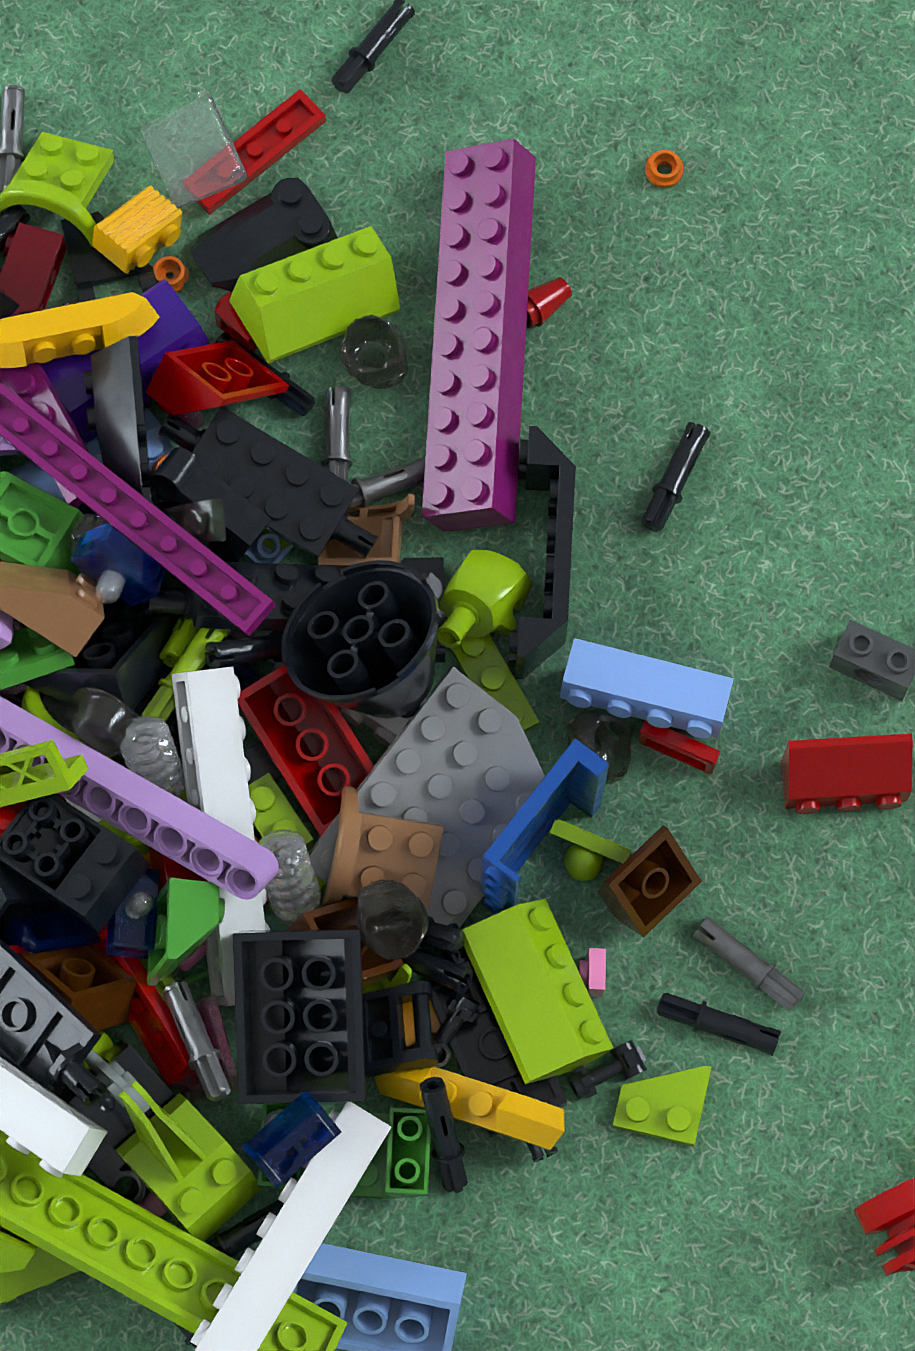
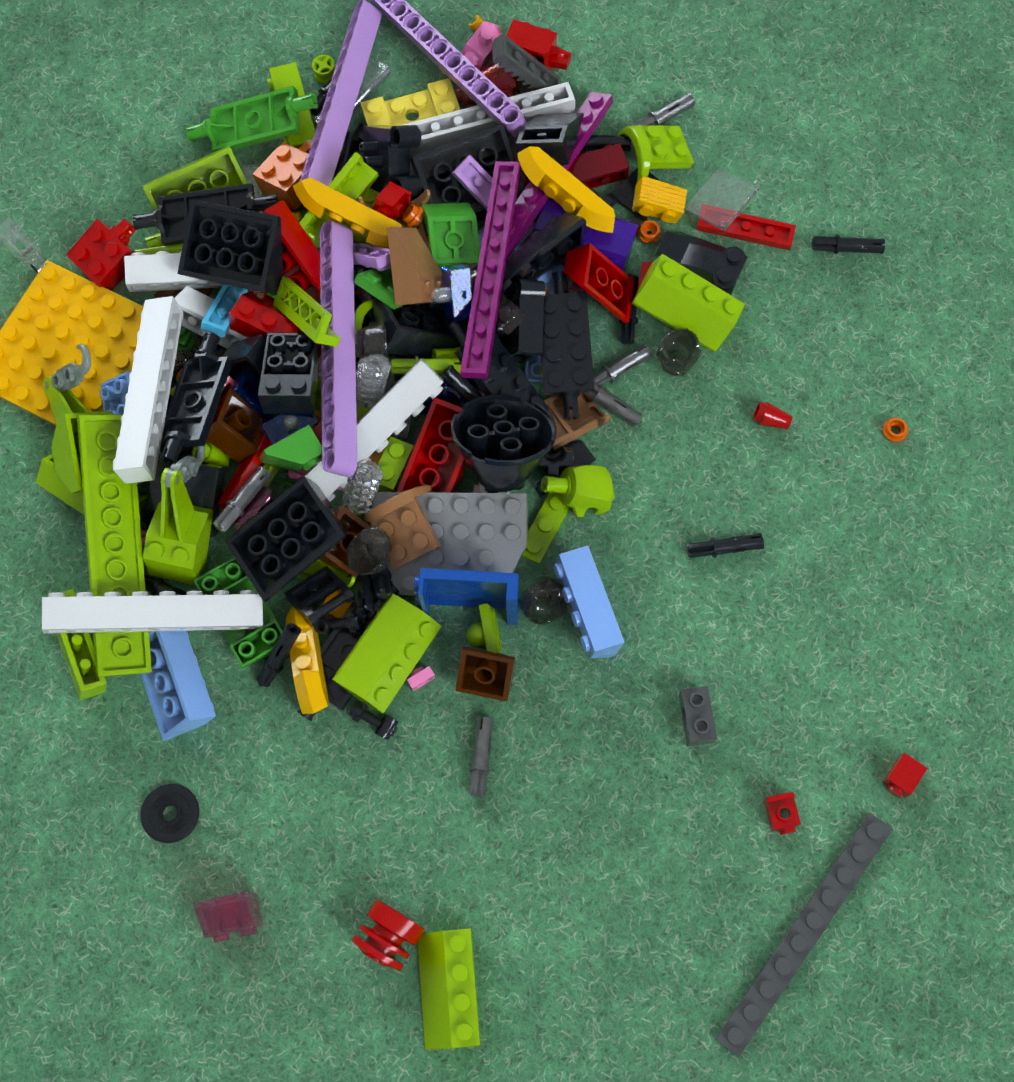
camera: 60 degrees right, 0 degrees up
(290, 1139) = (219, 577): clear blue piece -> none
(479, 337) = (726, 395): magenta brick -> none
(550, 471) = (576, 531): black slope -> none
(664, 1105) = (374, 762): lime wing -> none
(679, 747) = (575, 644): red tile -> none
(719, 1023) = (437, 761): black axle -> none
(847, 772) = (620, 740): red slope -> none

